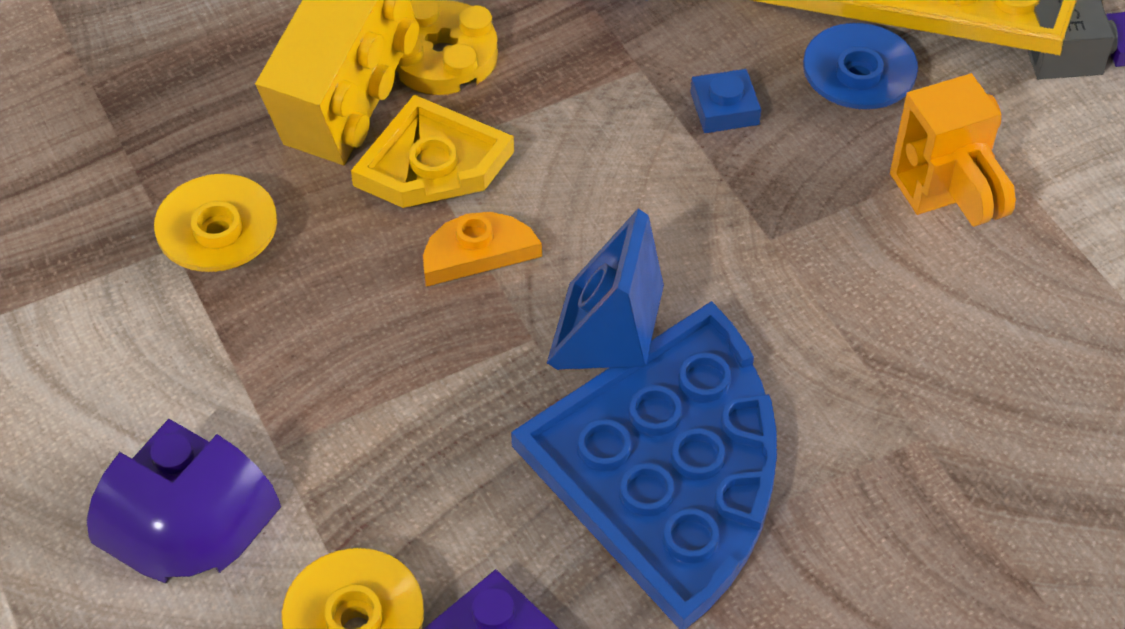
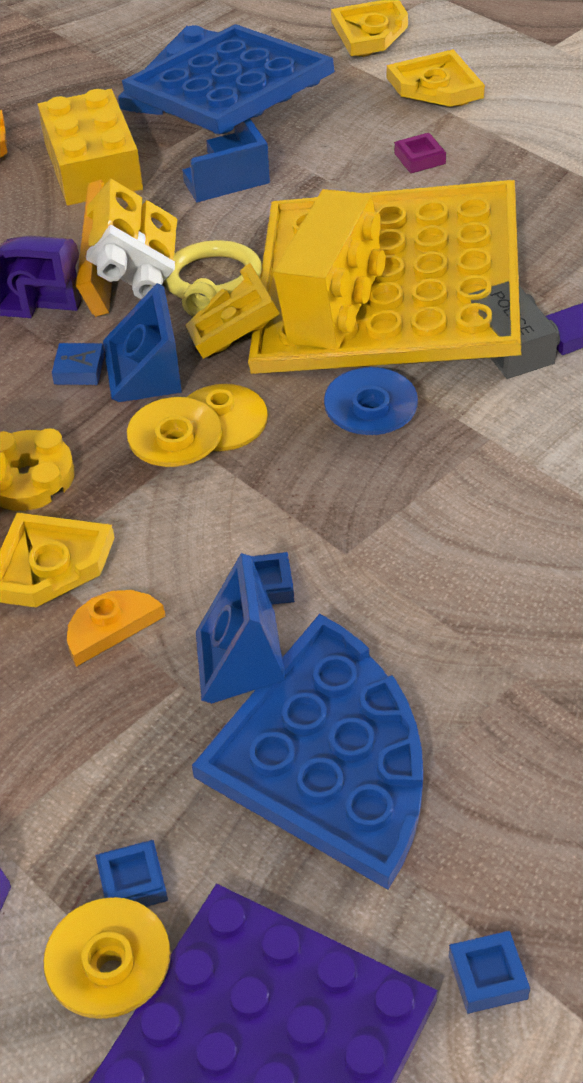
camera: 15 degrees left, 5 degrees down
(411, 532) = (132, 874): none -> blue tile
(620, 45) = (174, 431): none -> yellow dish
(676, 243) = (275, 576): none -> blue tile
(682, 40) = (240, 412): none -> yellow dish
(725, 101) = (272, 454): blue plate -> none
(947, 151) = (465, 447): light orange brick -> none

